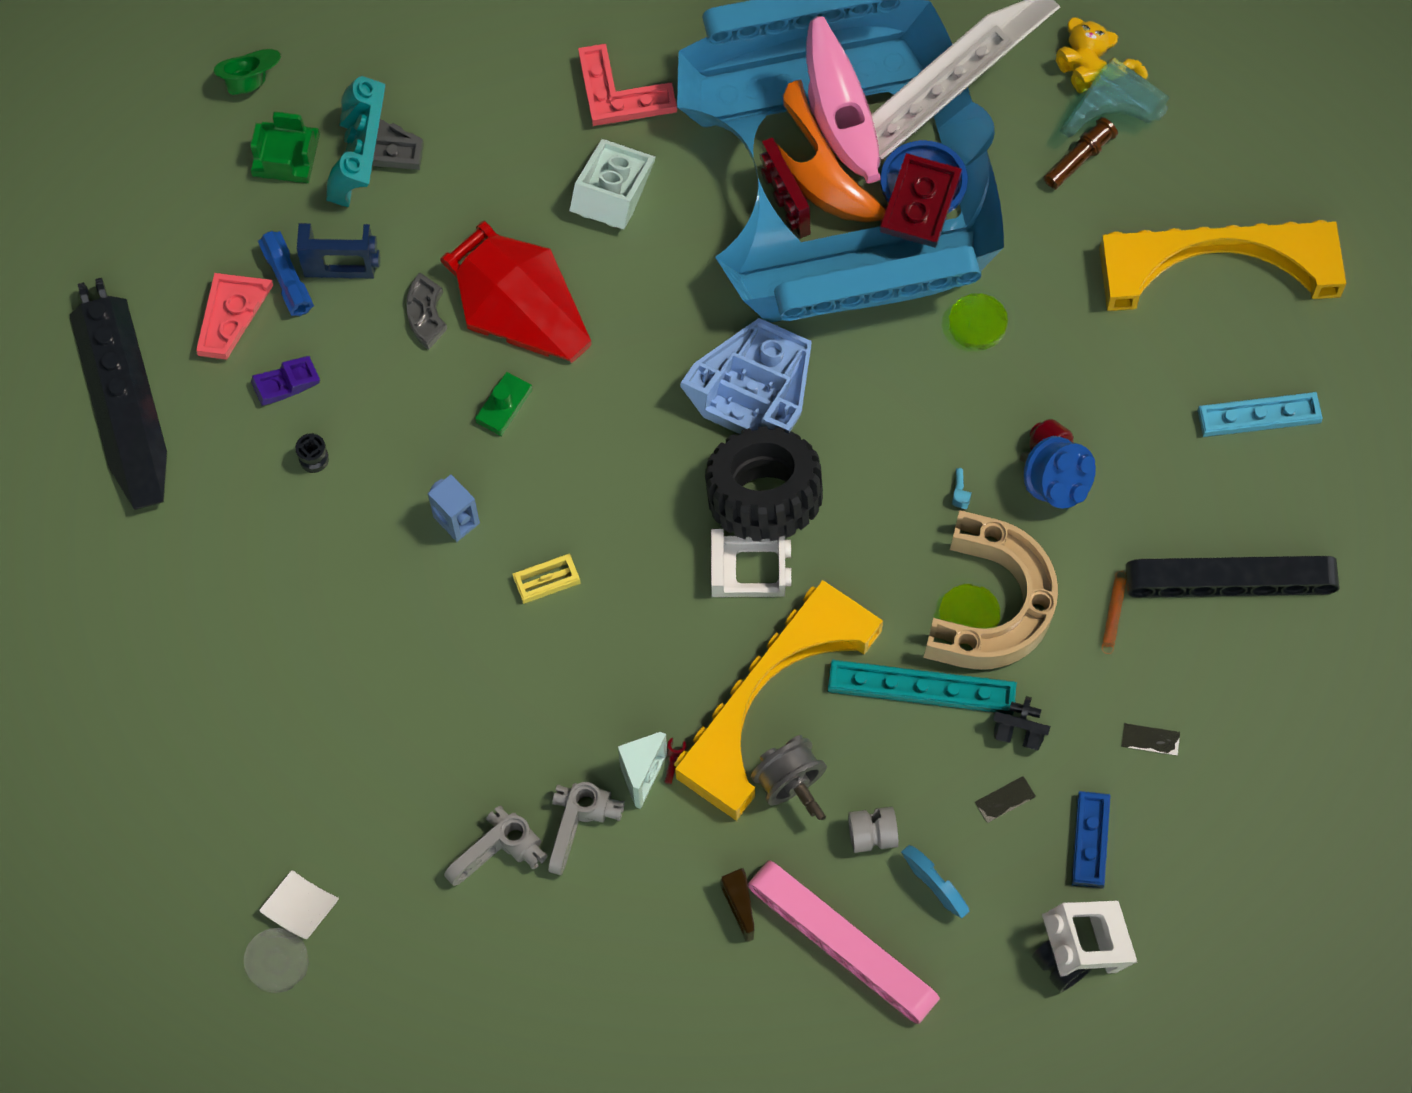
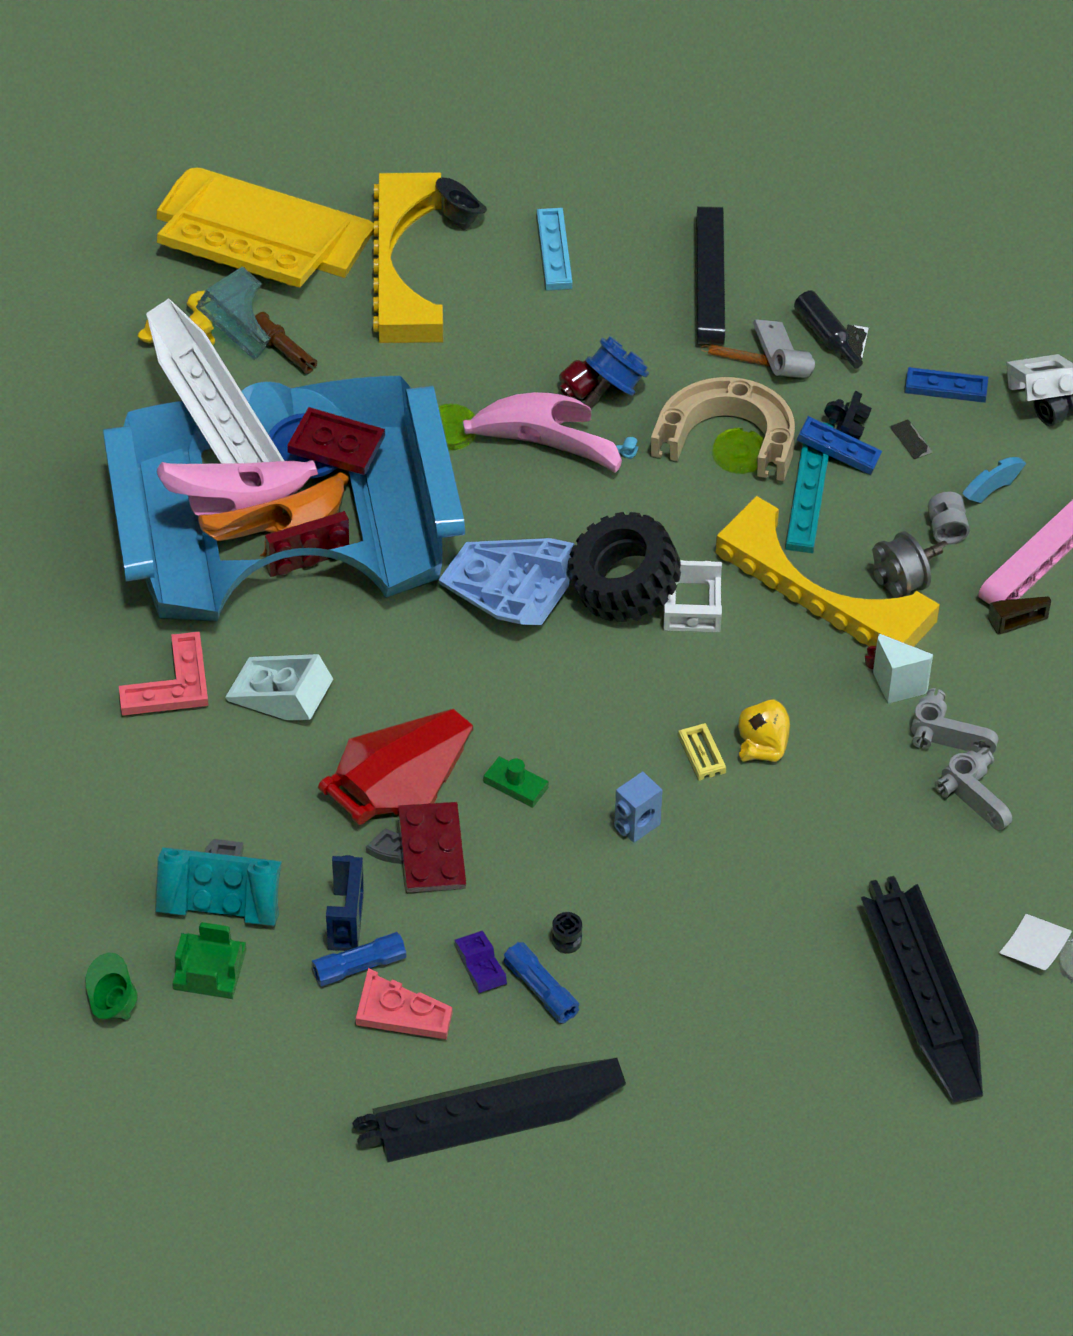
camera: 90 degrees left, 15 degrees down
(244, 787) = (927, 987): none -> black hinge
(273, 420) = (555, 997): none -> blue axle
(413, 327) = (431, 847): none -> dark red plate
(563, 633) = (765, 731): none -> yellow piece
(977, 714) = (839, 445): none -> blue tile
(978, 401) = (538, 419): none -> bright pink piece
(1121, 653) = (780, 353): none -> light grey door
(1162, 702) = (826, 325): none -> black piece
(1248, 117) = (259, 228): none -> yellow slope
(1311, 306) = (459, 203): none -> black piece

